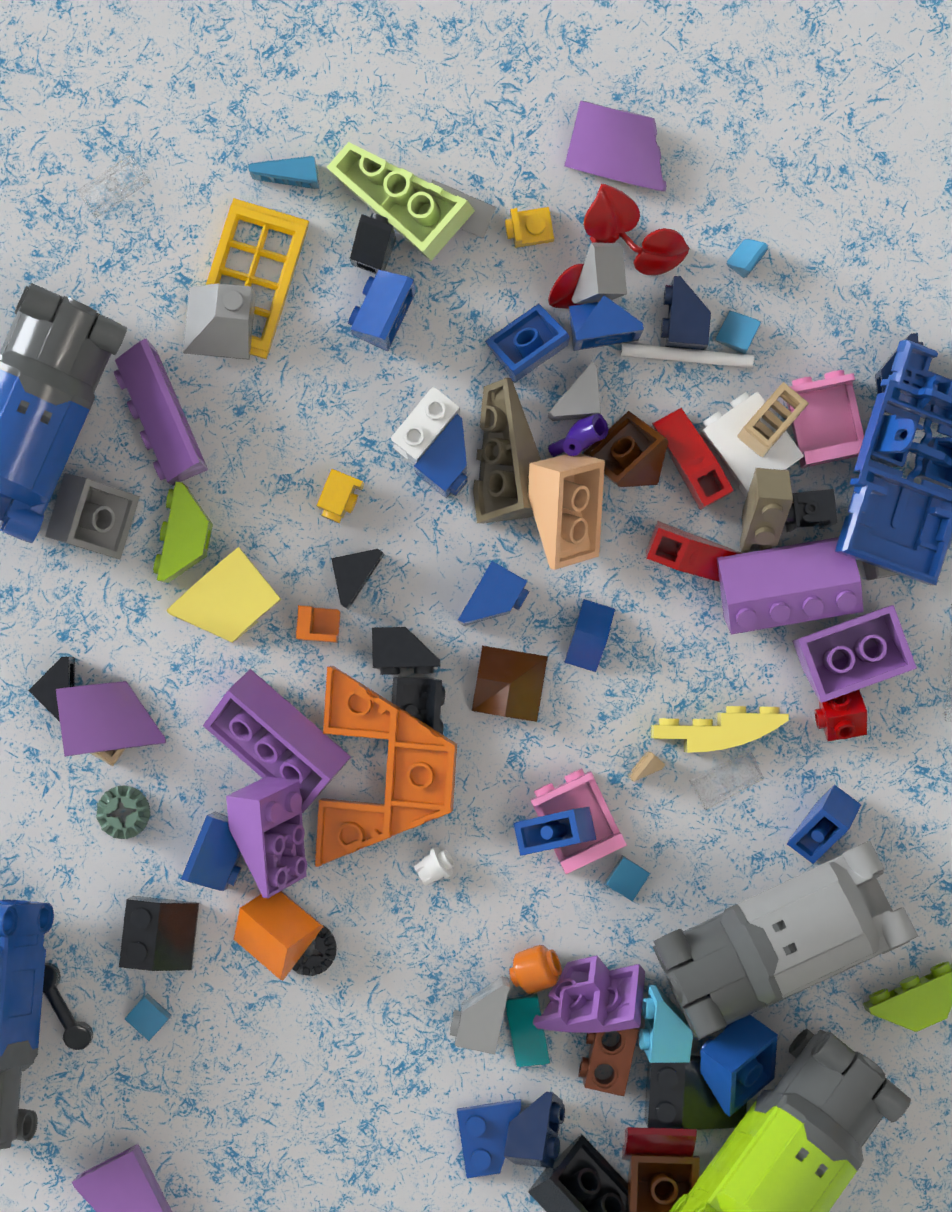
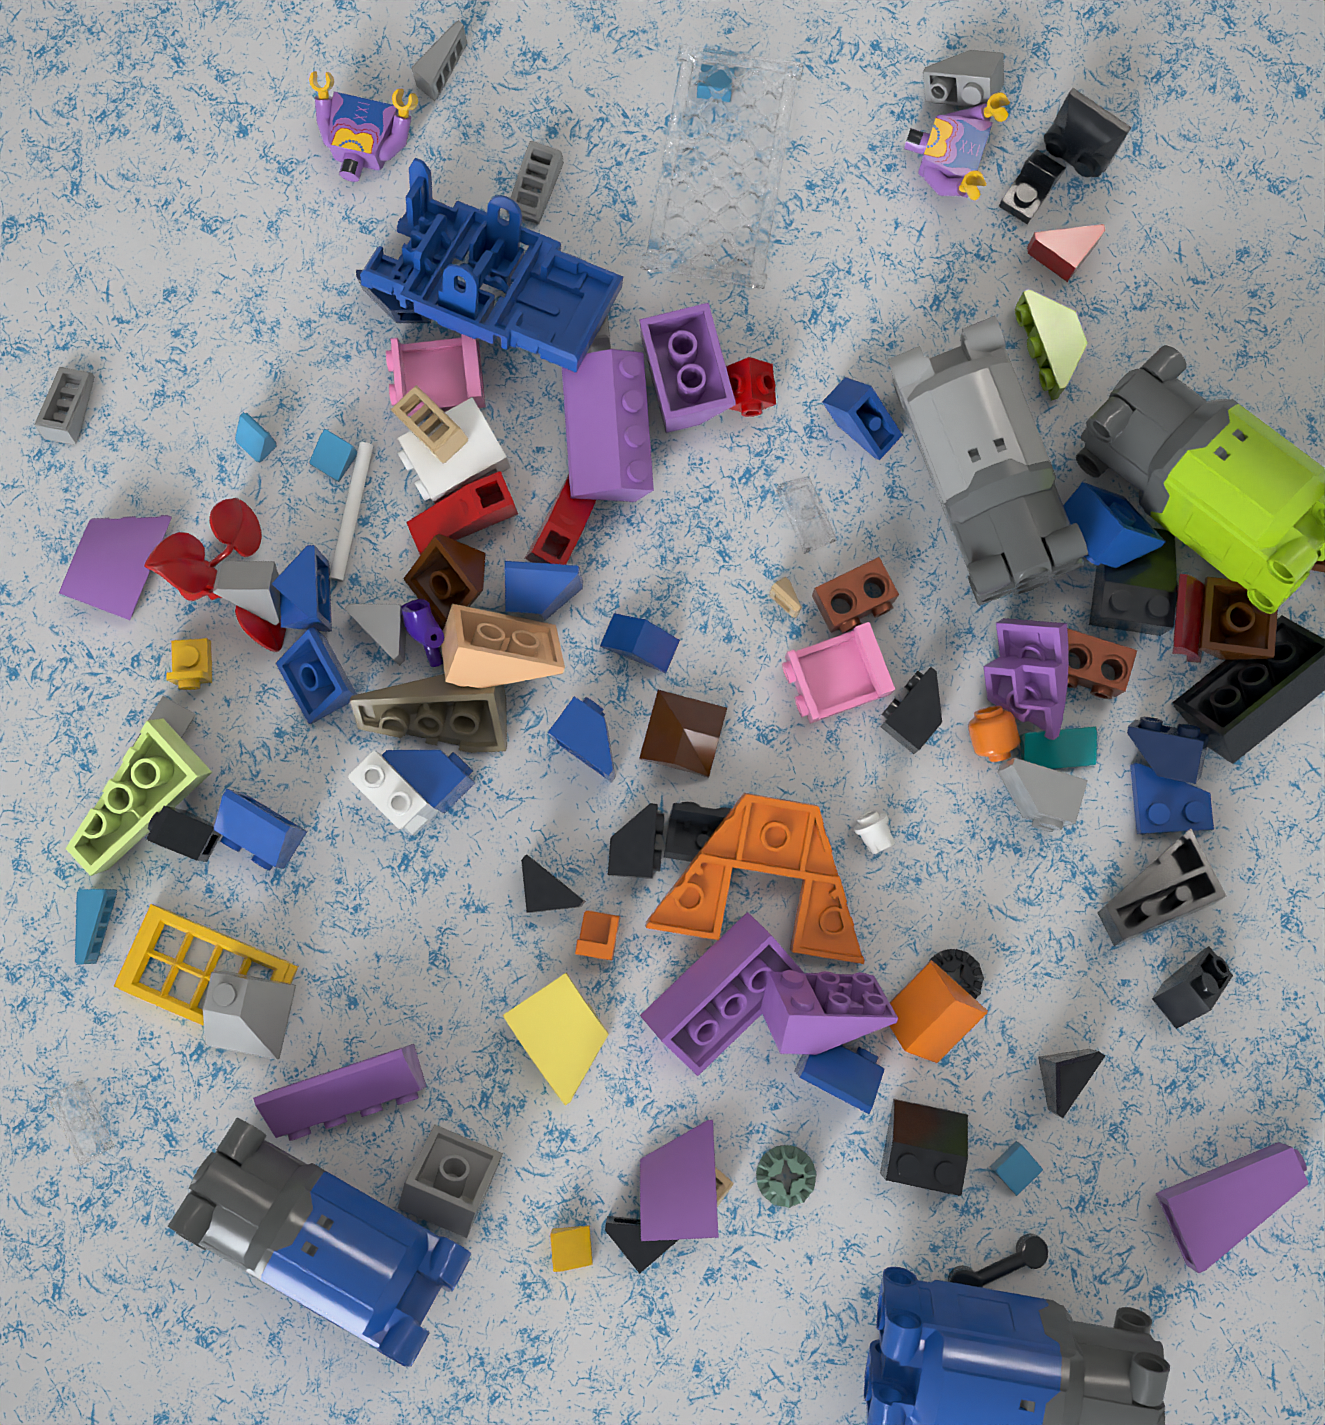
camera: 80 degrees left, 5 degrees down
(44, 628) = (571, 1248): none -> yellow slope
(184, 535) = (483, 1076): lime slope -> none
(233, 1056) = (1066, 1076): none -> black slope
(320, 1166) = (1193, 988): none -> black slope
(338, 495) = (458, 898): yellow brick -> none
(403, 1133) = (1164, 892): none -> black wedge
(546, 897) = (917, 714): none -> black slope
(554, 831) = (847, 697): blue slope -> none
(627, 537) = (540, 587): none -> blue slope
(627, 878) = (902, 628): dark azure slope -> none
(658, 827) = (850, 588): none -> copper brick
(666, 1030) = (1070, 599): medium azure slope -> none
(687, 317) = (309, 505): dark blue slope -> none
(732, 729) = (753, 503): light yellow slope -> none
(748, 87) = (59, 426): none -> light grey slope
(766, 508) = (524, 439): dark tan hinge -> none
(812, 509) = (529, 397): black hinge -> none

